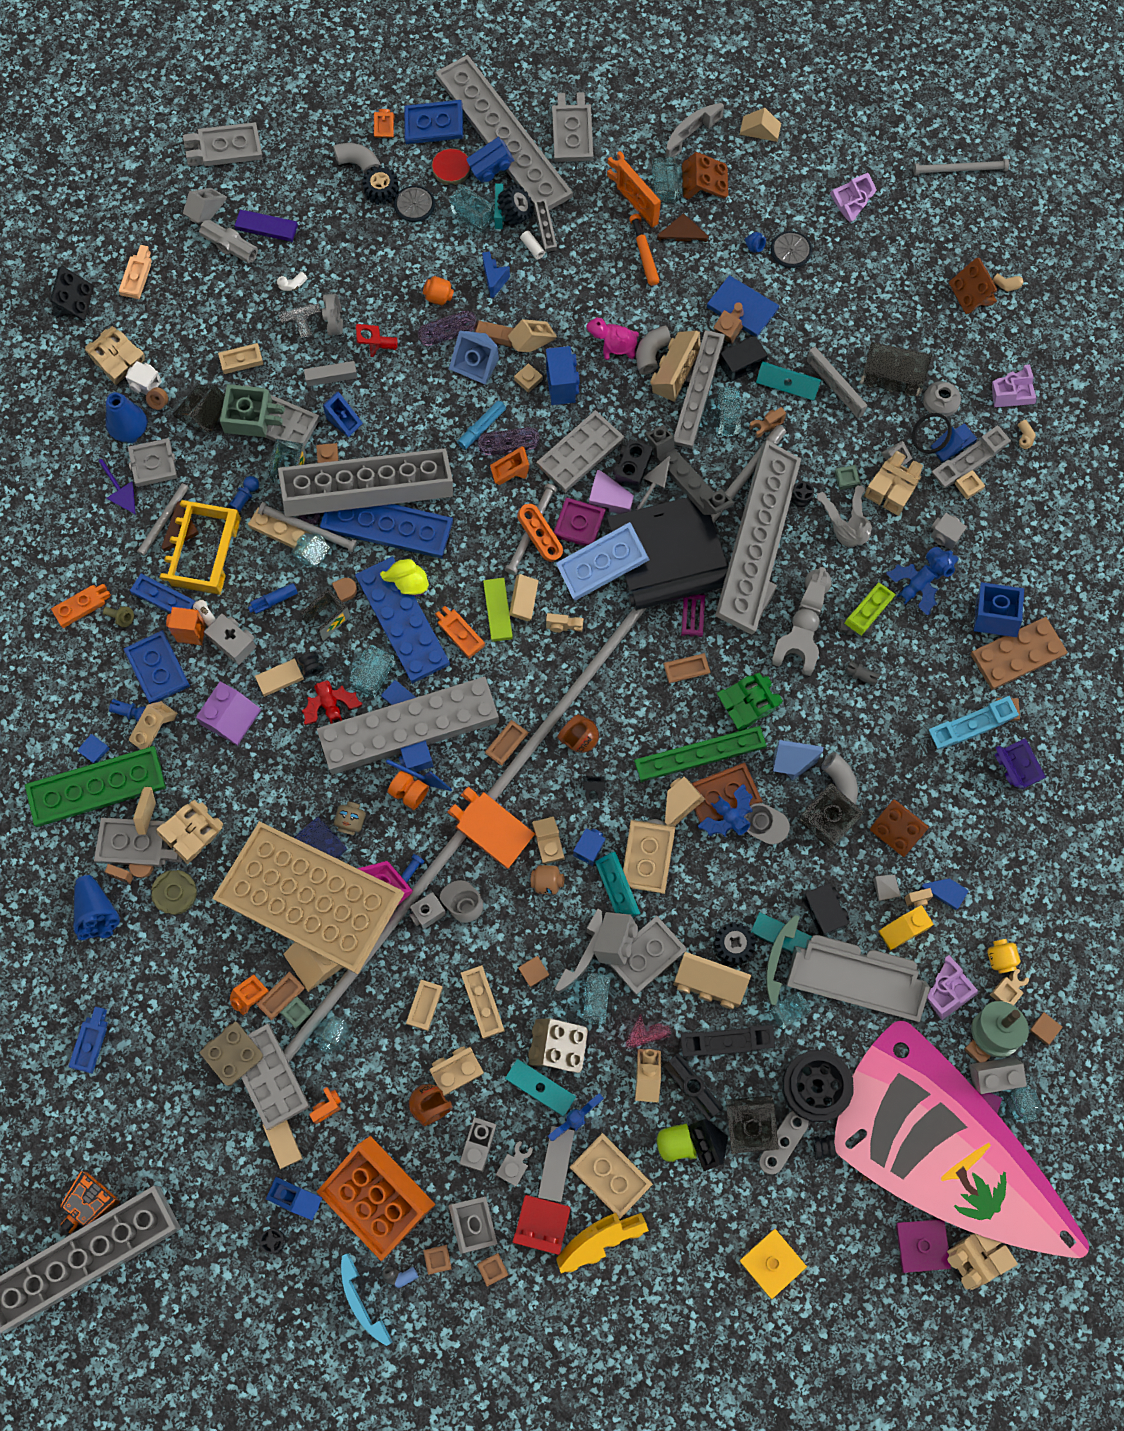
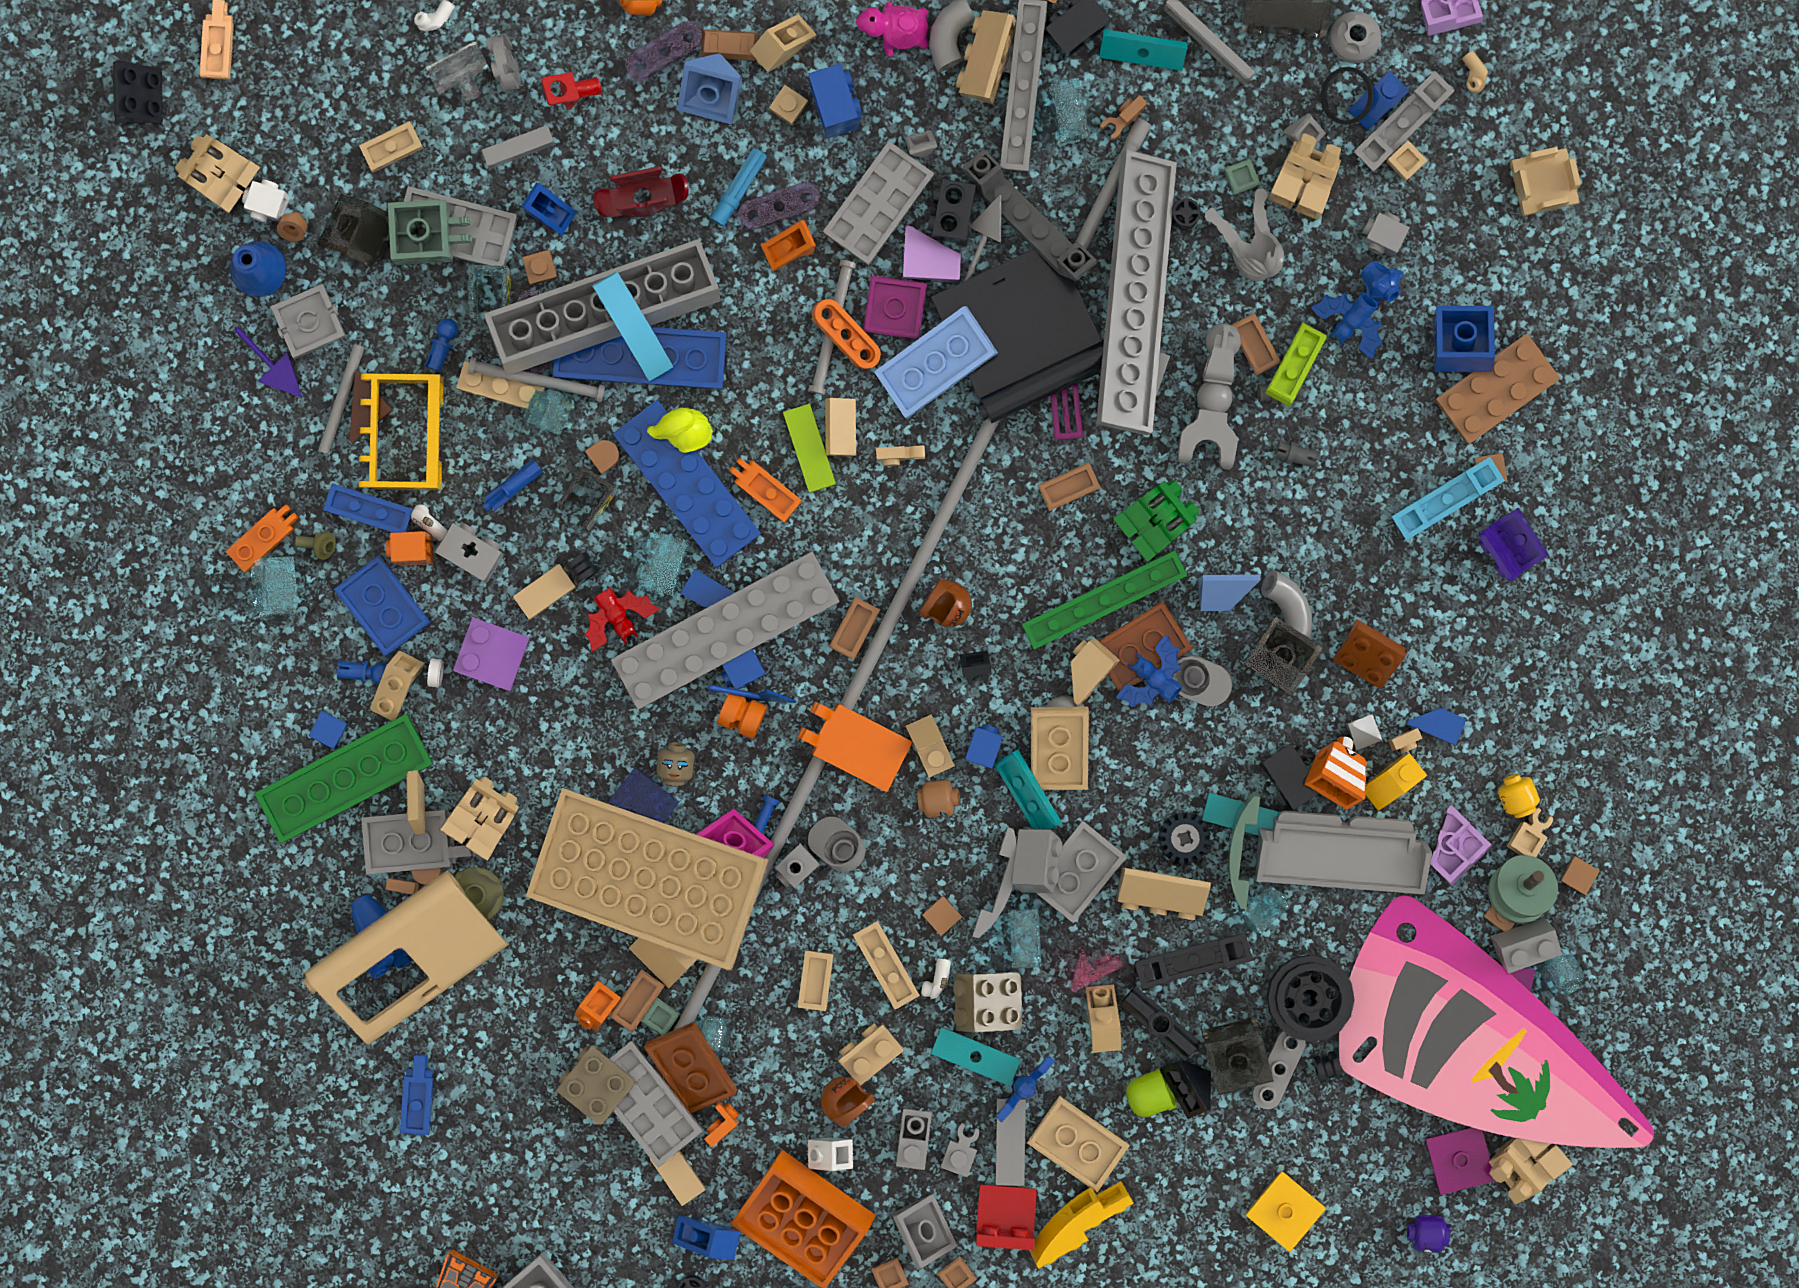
camera: 10 degrees left, 15 degrees up
(80, 637) = (275, 587): none -> clear light blue brick
(136, 909) = (435, 929): none -> tan piece
(183, 720) = (435, 672): none -> white tile
(310, 1053) = (690, 1067): none -> dark orange tile
(385, 496) = (633, 326): none -> medium azure slope
(408, 1145) = (830, 1154): none -> white brick
(411, 415) = (621, 202): none -> dark red piece
(523, 1021) = (940, 980): none -> white arm
(618, 418) = (921, 144): none -> light grey slope
(842, 592) = (1256, 344): none -> medium nougat tile
(864, 913) = (1339, 773): none -> orange torso
(890, 1304) = (1429, 1233): none -> dark purple head
(1071, 514) = (1545, 181): none -> tan panel

